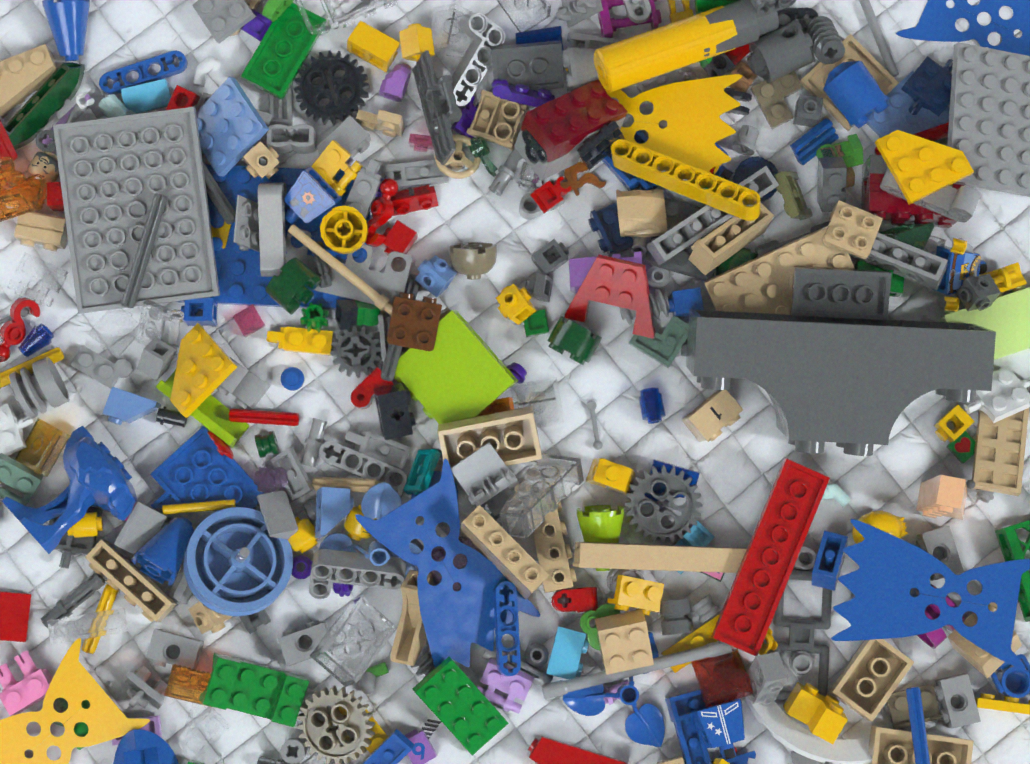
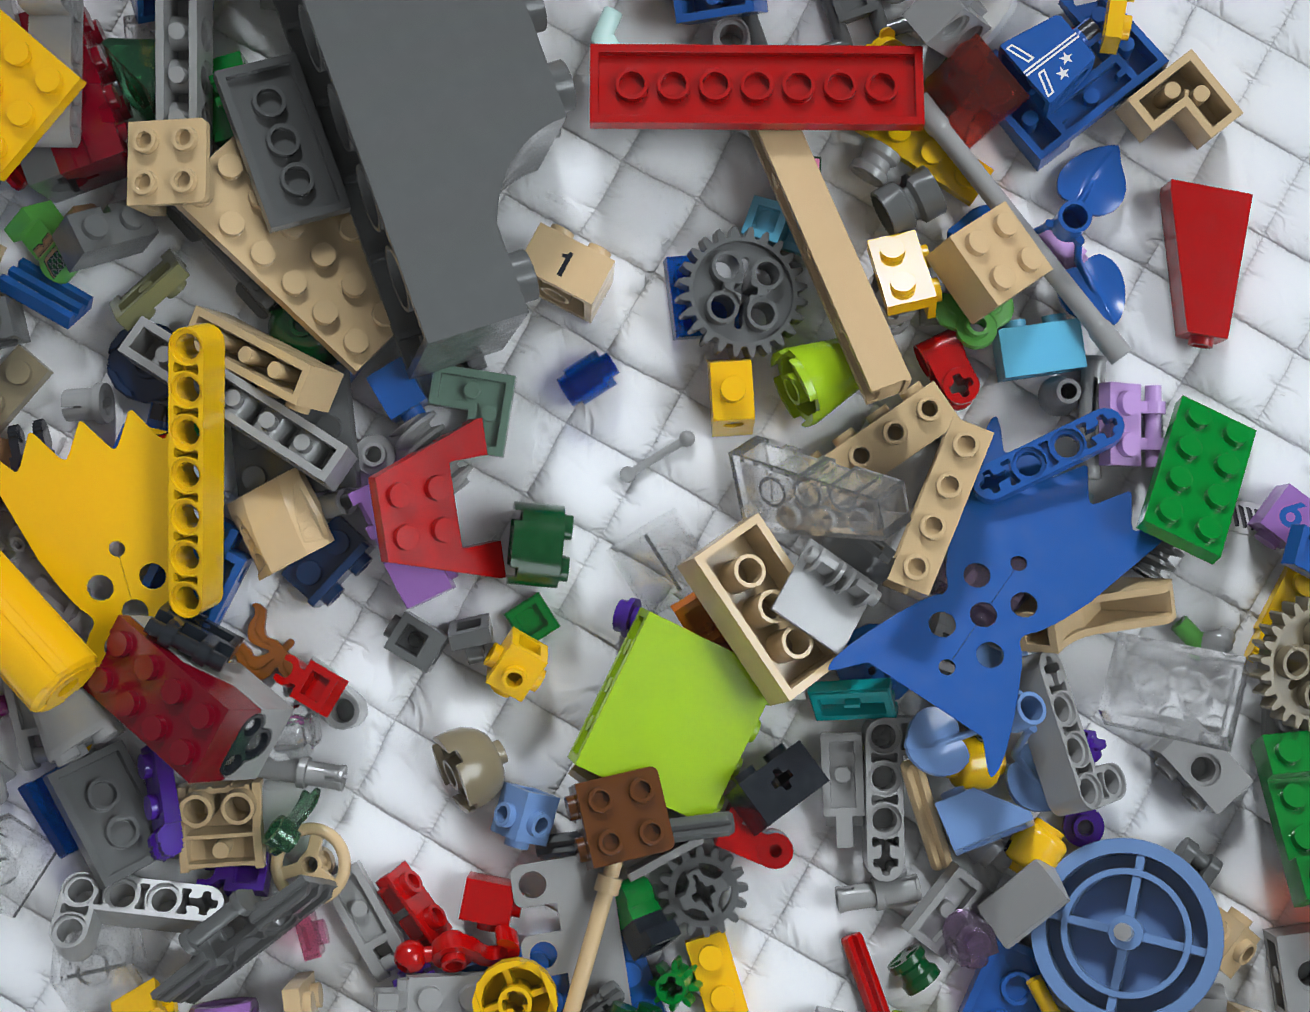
camera: 115 degrees left, 5 degrees up
(292, 378) = (789, 974): blue plate -> none

